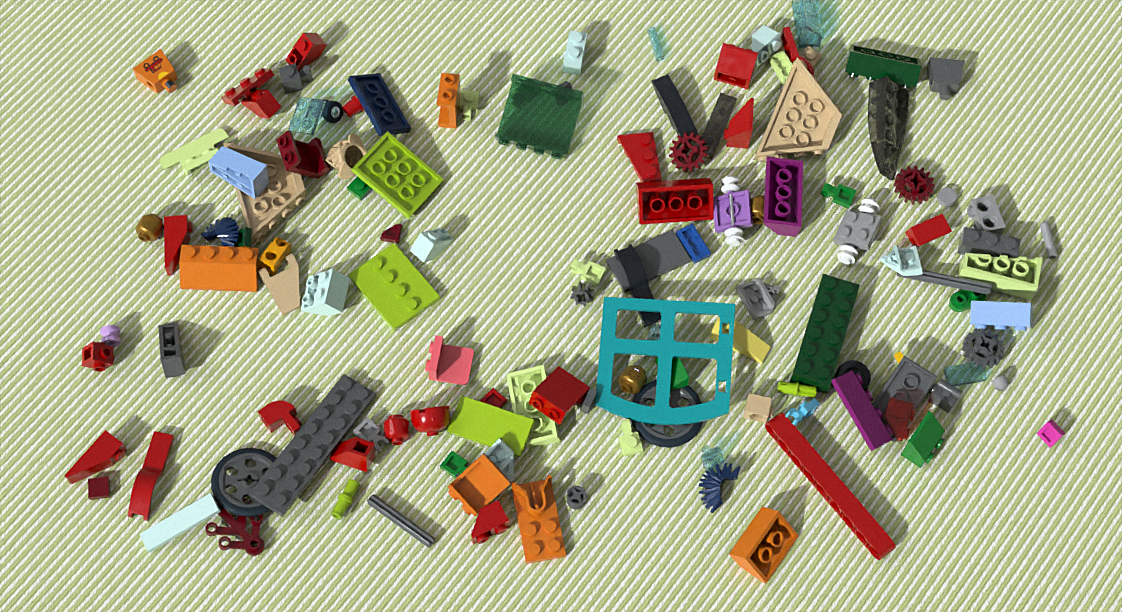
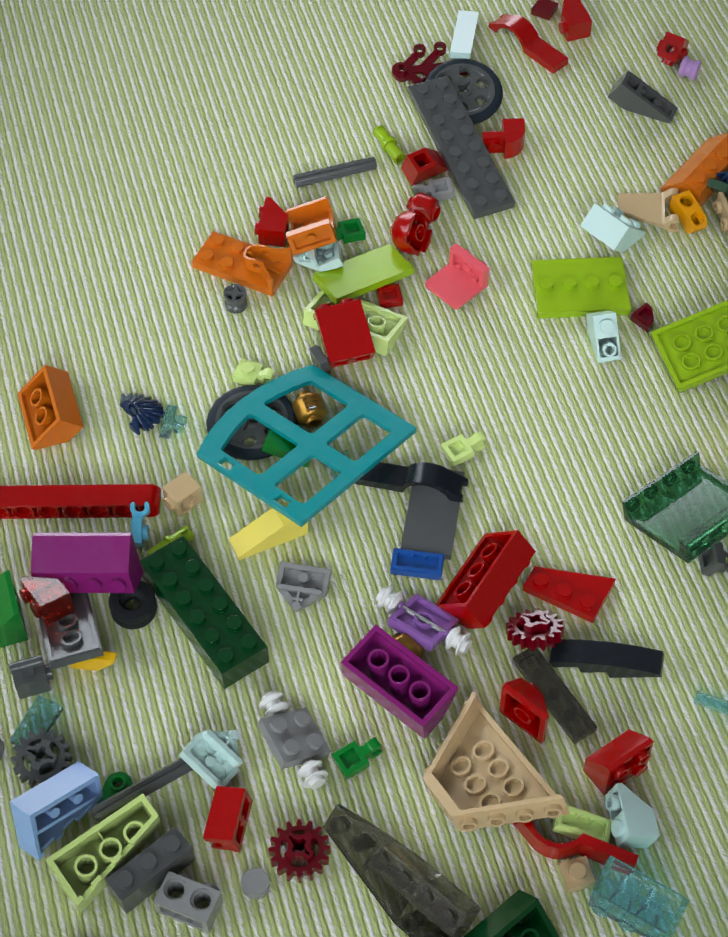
camera: 130 degrees right, 10 degrees down
(582, 288) = (440, 423): dark grey gear -> none

